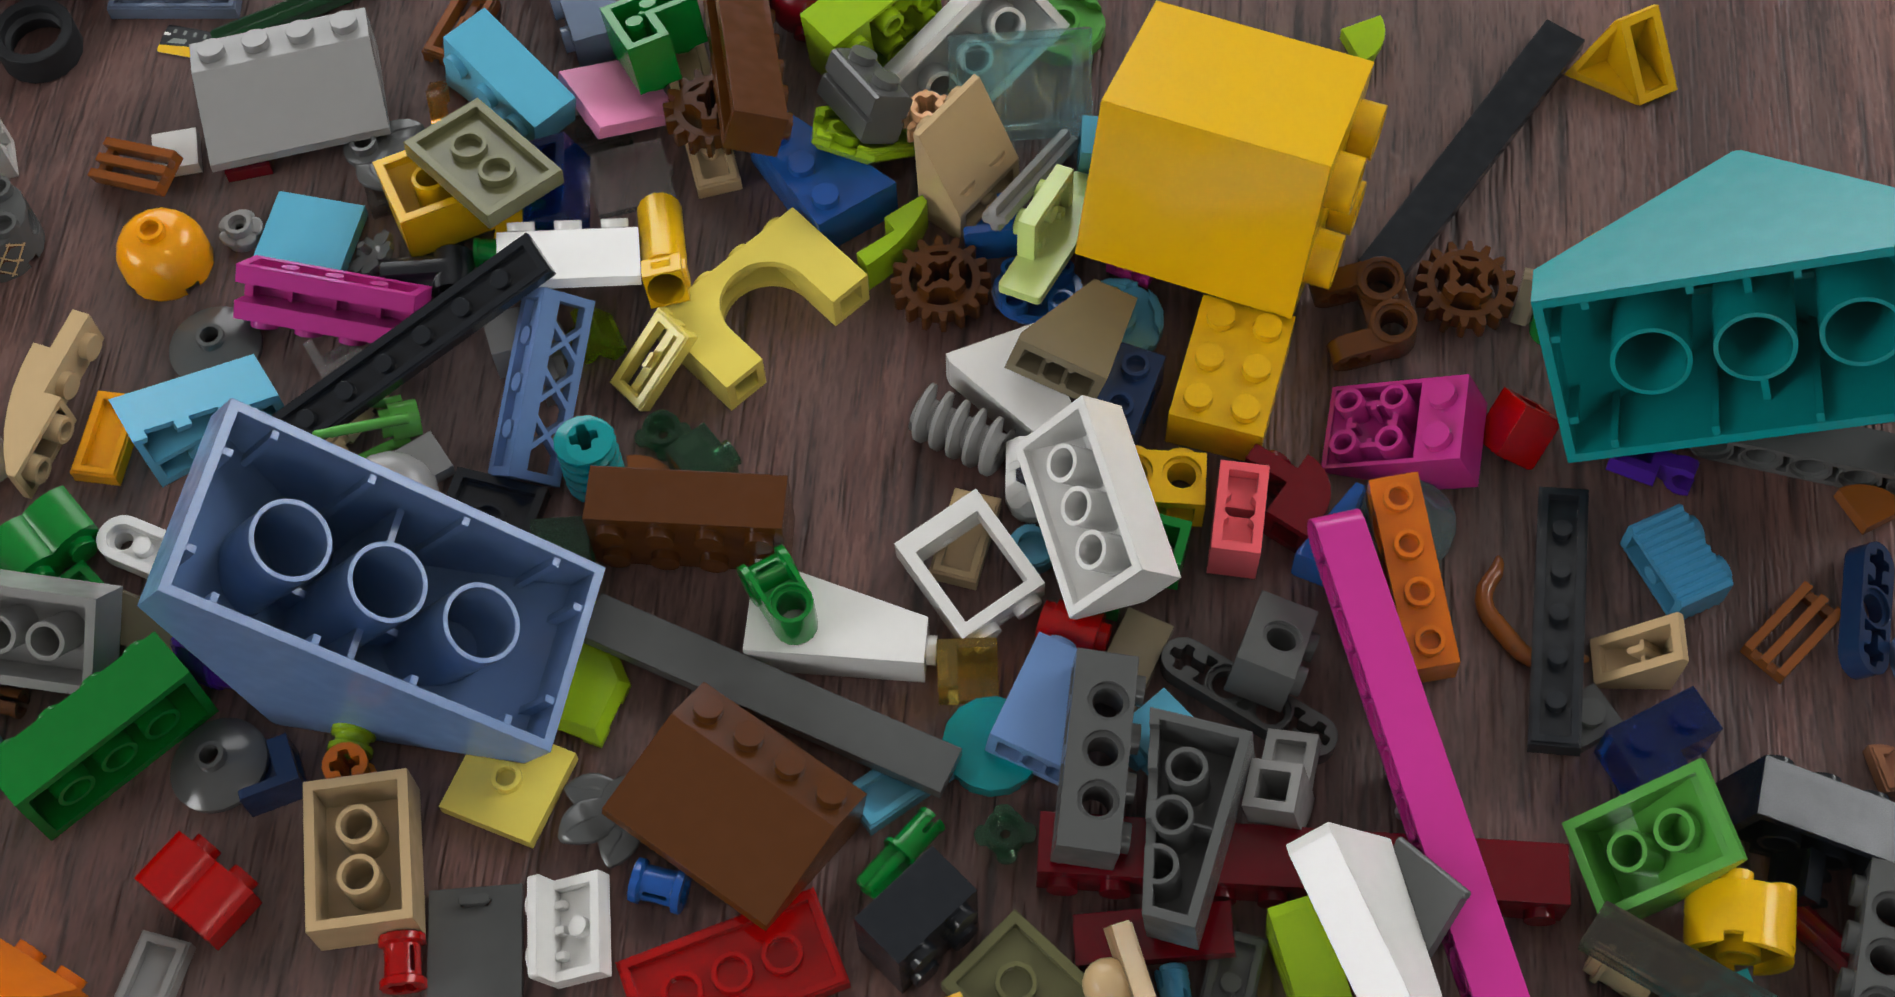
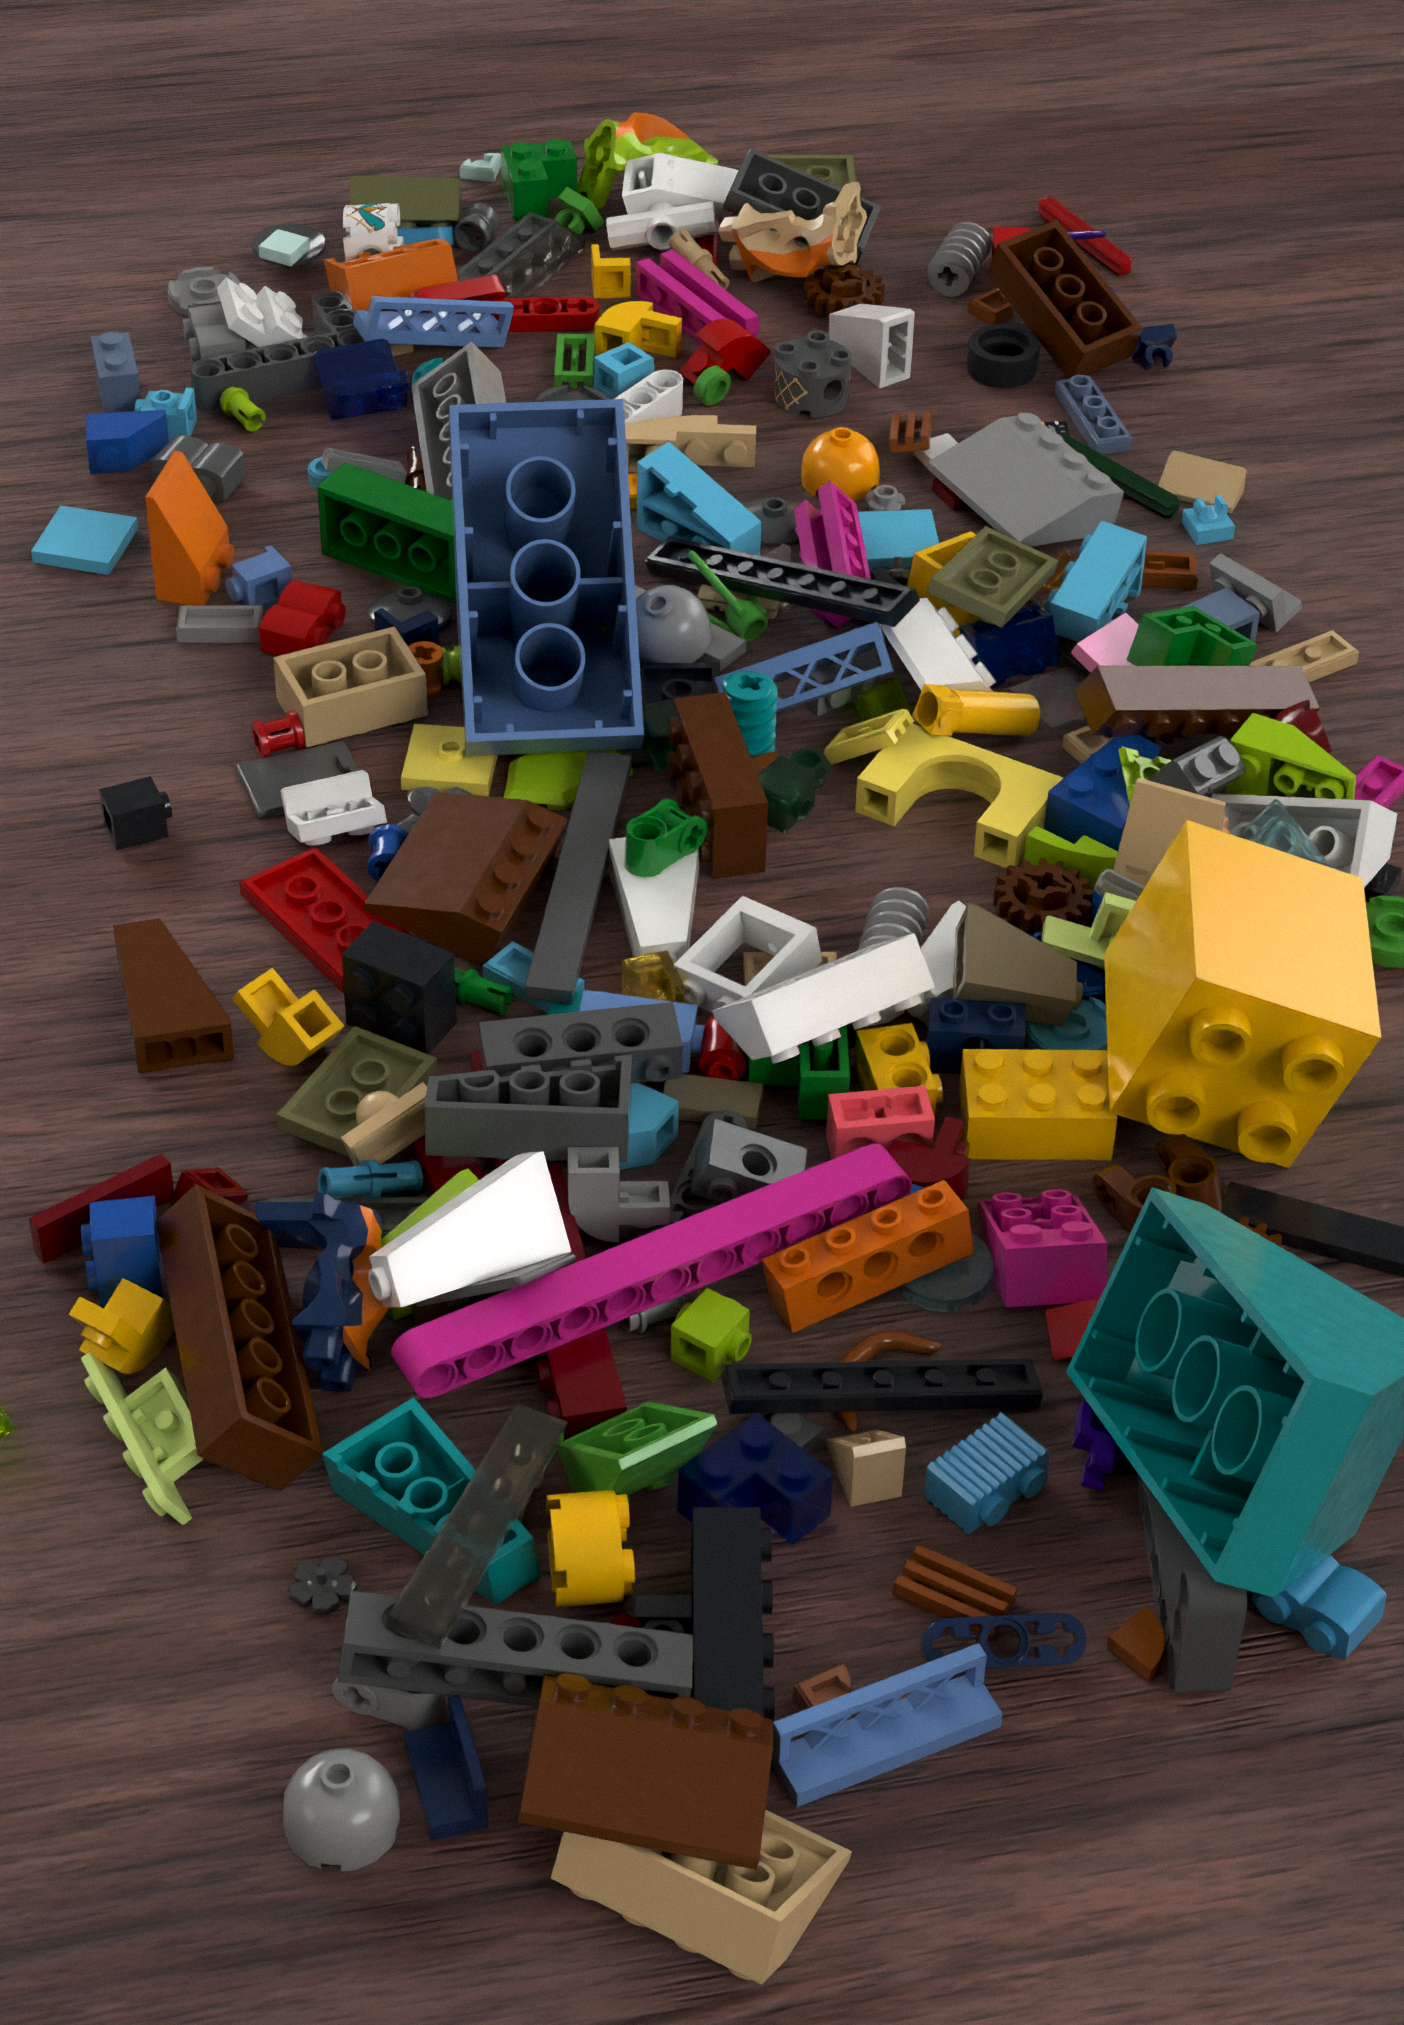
camera: 70 degrees right, 20 degrees down
(99, 921) = (259, 579): none -> medium blue brick
(1469, 743) = (710, 1334): none -> lime brick

